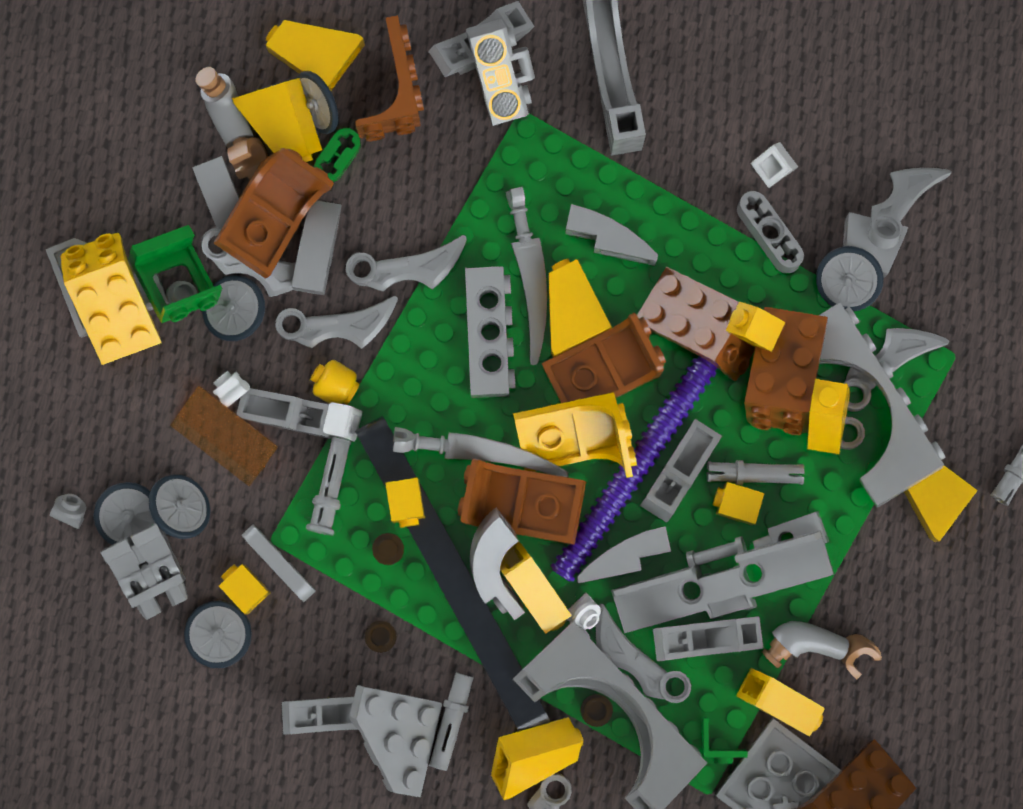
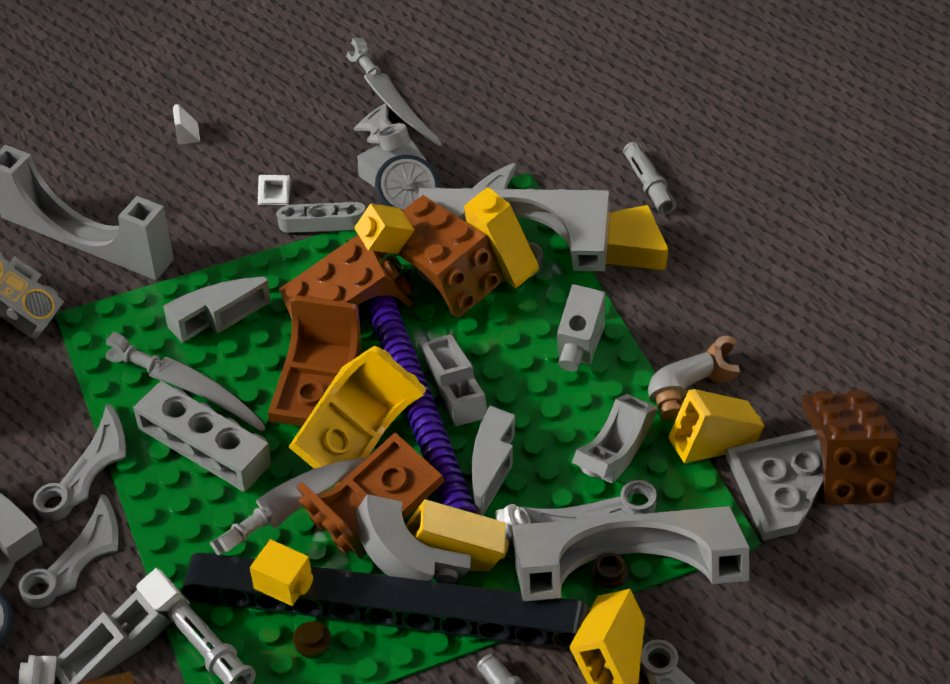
camera: 55 degrees left, 35 degrees down
(334, 382) = (119, 582): yellow head -> none
(573, 308) = (244, 364): yellow slope -> none
(721, 756) = (731, 495): green bracket -> none
(727, 591) = (549, 455): light grey piece -> none
(738, 503) = (518, 355): yellow brick -> none
(751, 472) = (494, 339): light grey pin -> none
(784, 32) = (185, 126): none -> white slope
(956, 164) = (385, 89): none -> light grey sword

